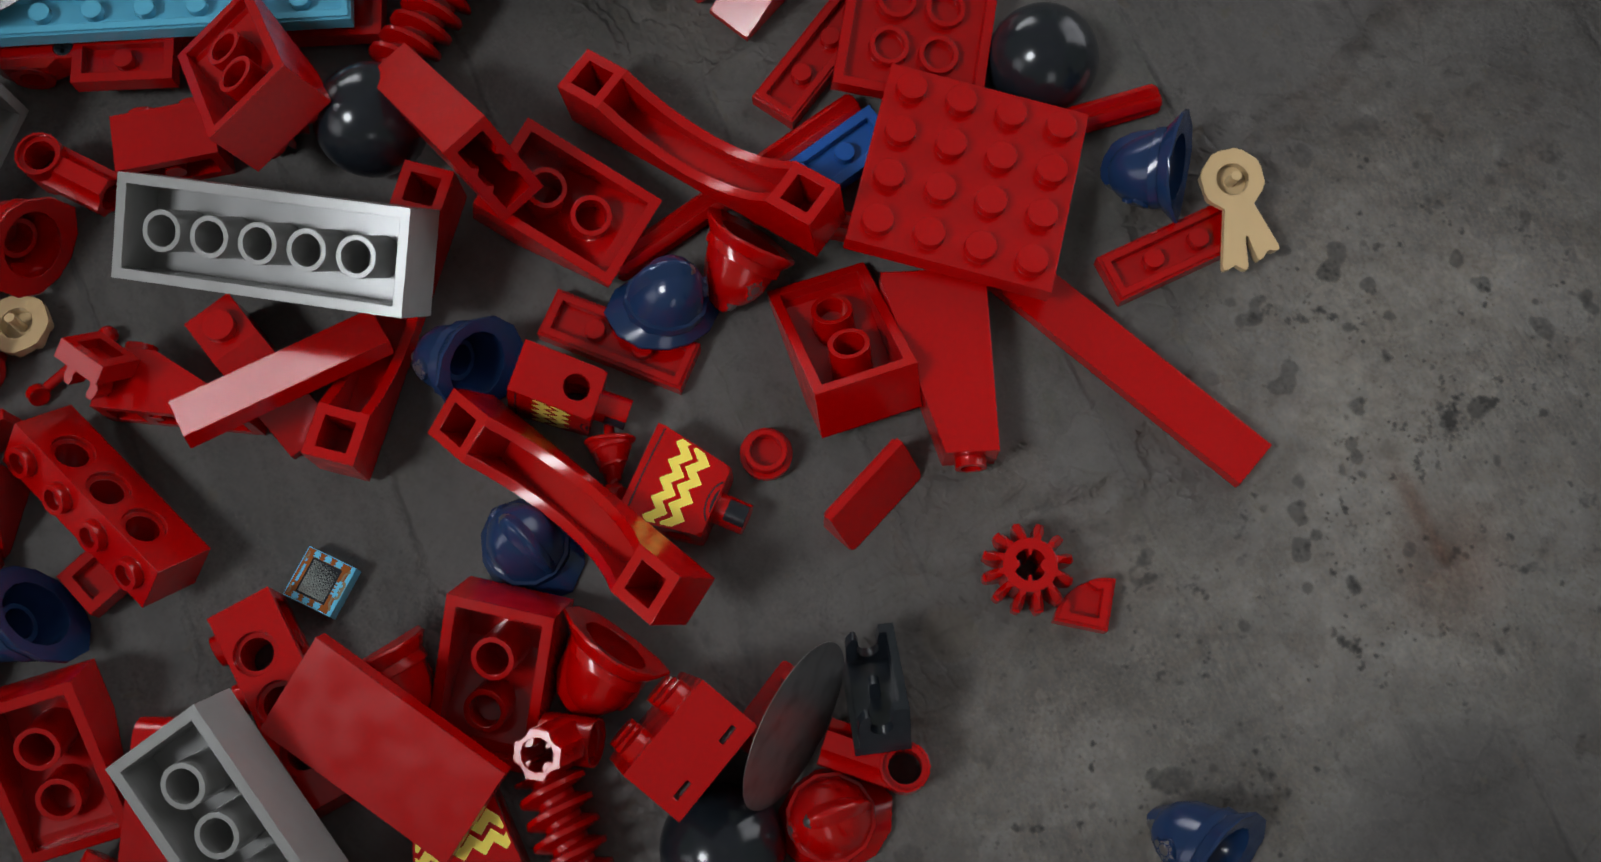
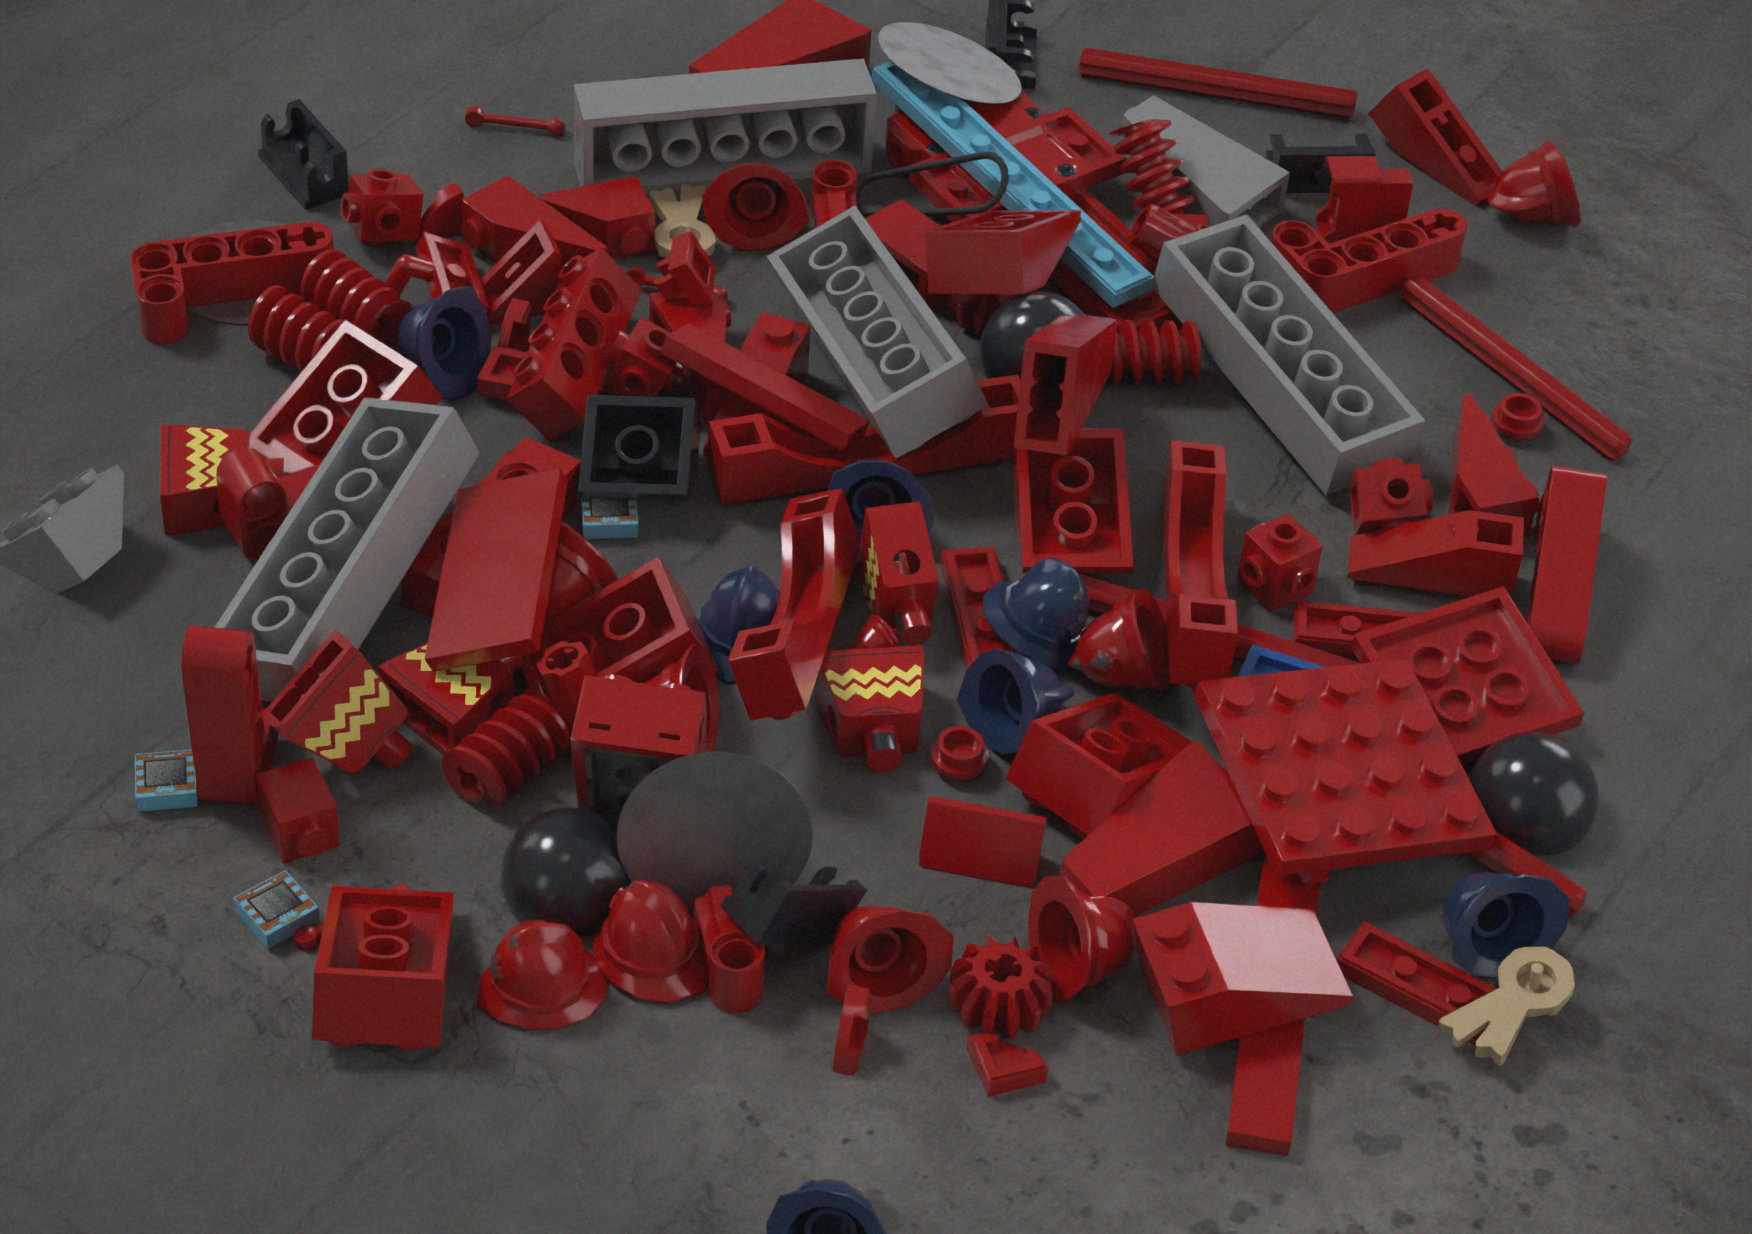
camera: 55 degrees right, 30 degrees down
(47, 545) = (516, 326): none -> red tile
(97, 58) = (937, 164): none -> black piece
(166, 460) = (640, 365): none -> red brick
(284, 527) = (639, 447): none -> black slope
(715, 82) = (1279, 562): none -> red brick
(749, 382) = (1005, 694): none -> dark blue piece
(949, 644) = (892, 953): none -> red piece
(1003, 706) = (852, 1030): none -> red tile
(1024, 487) = (1078, 935): none -> red piece
(1114, 383) = (1235, 970): none -> red slope

